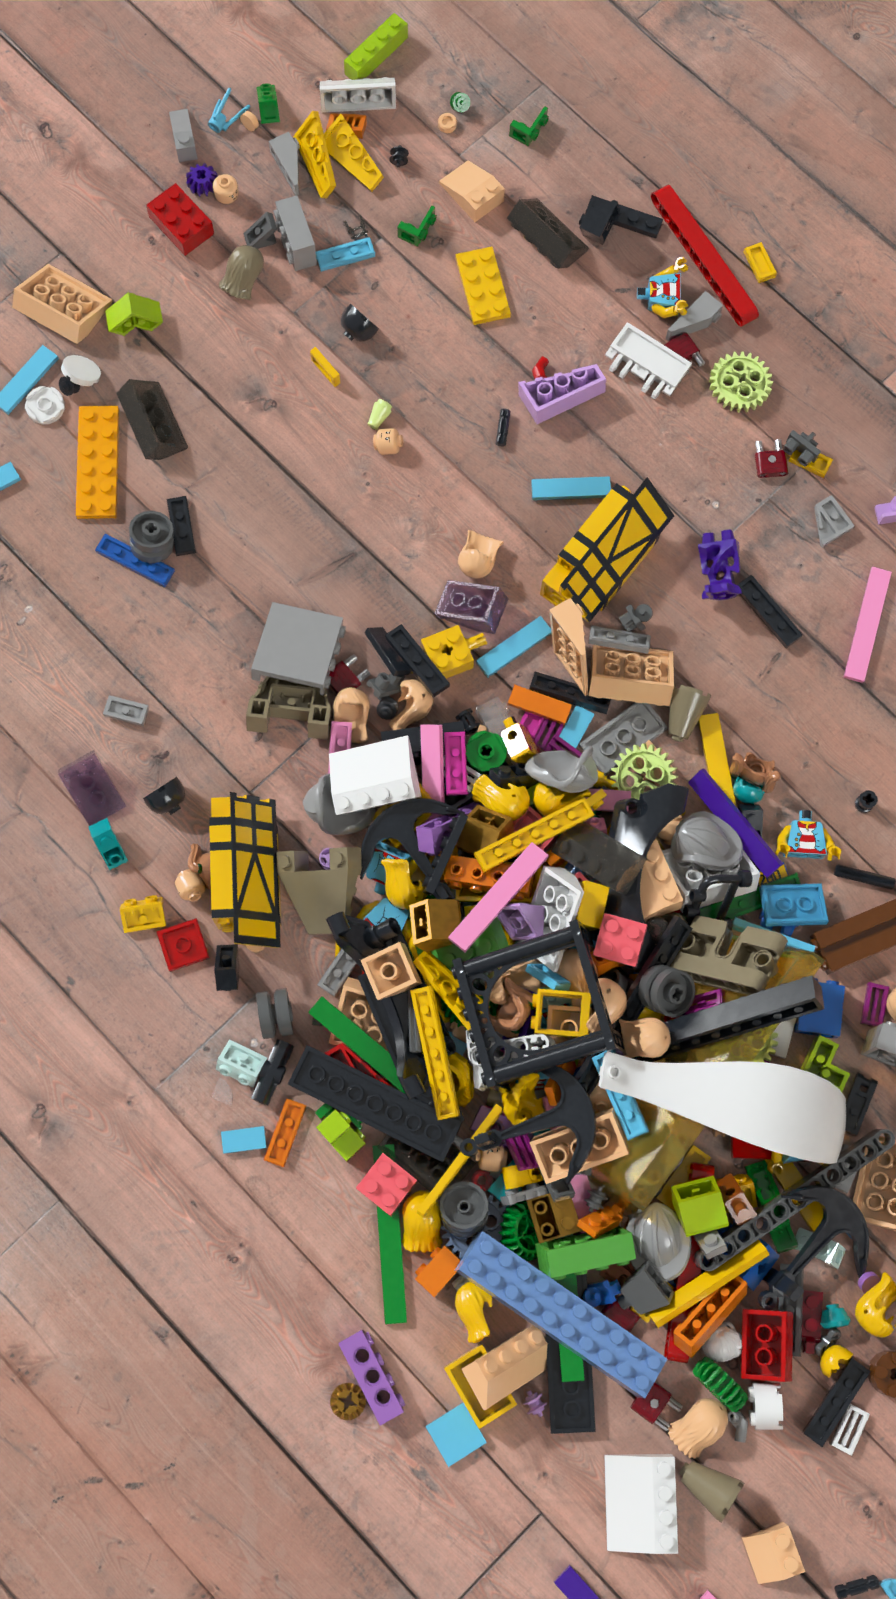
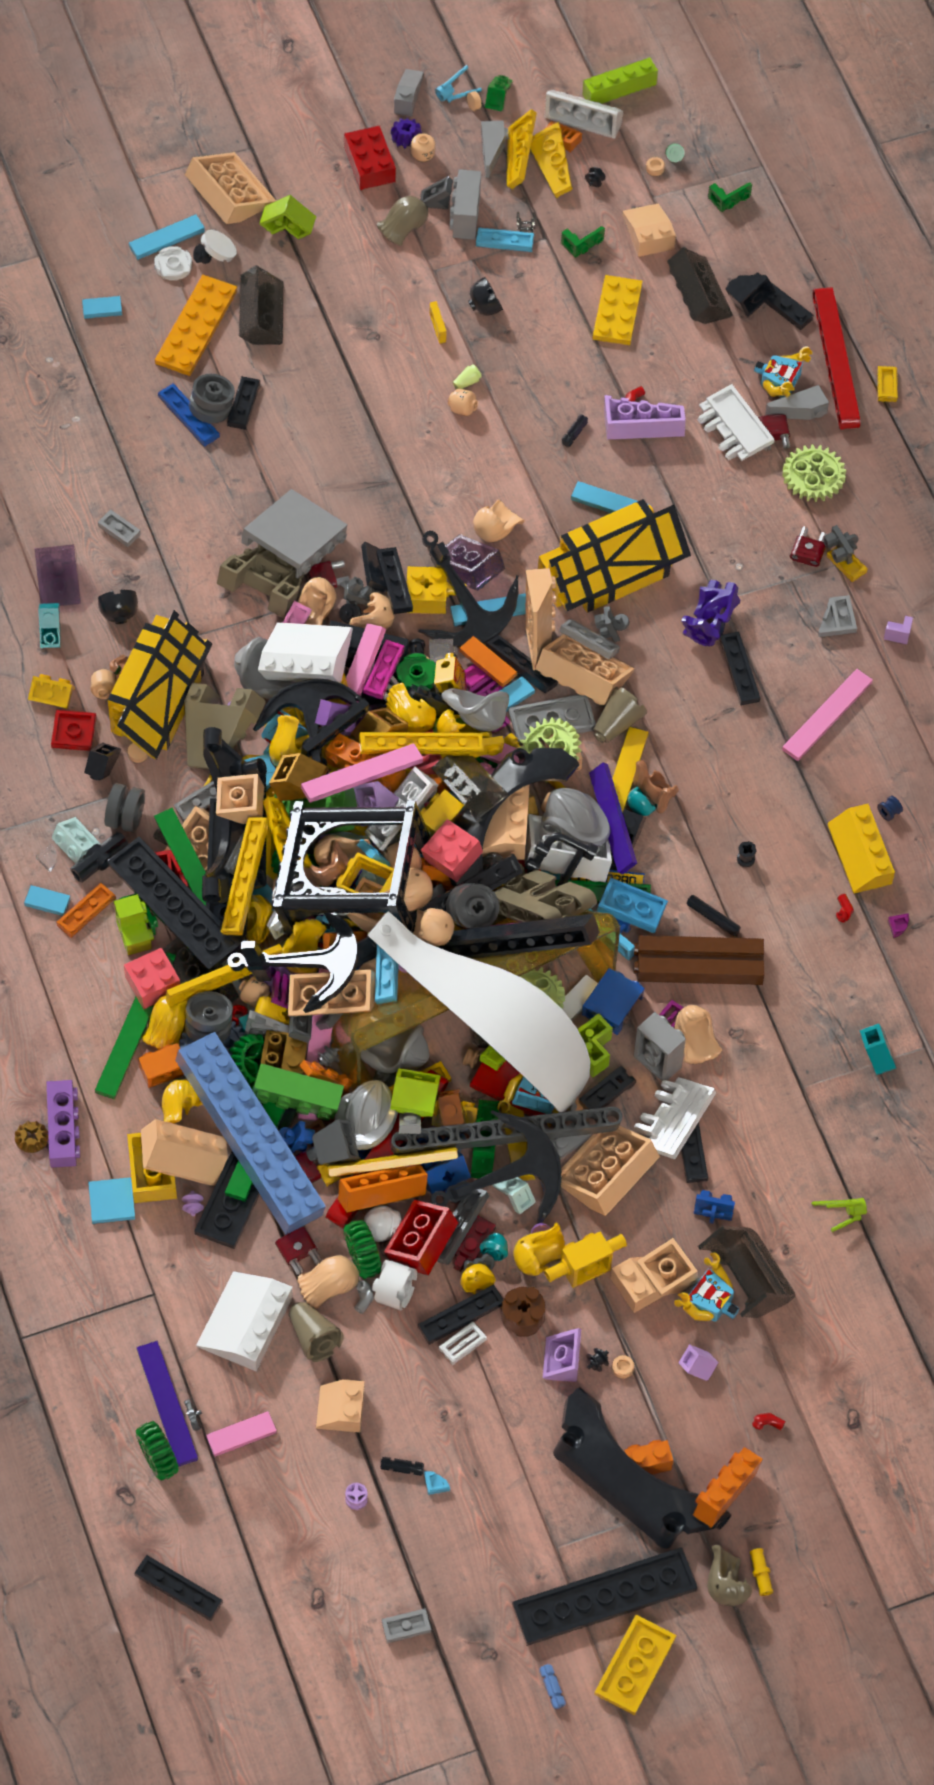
camera: 25 degrees right, 15 degrees down
(513, 667) = (480, 622): none -> black piece
(806, 839) = (672, 861): torso -> none

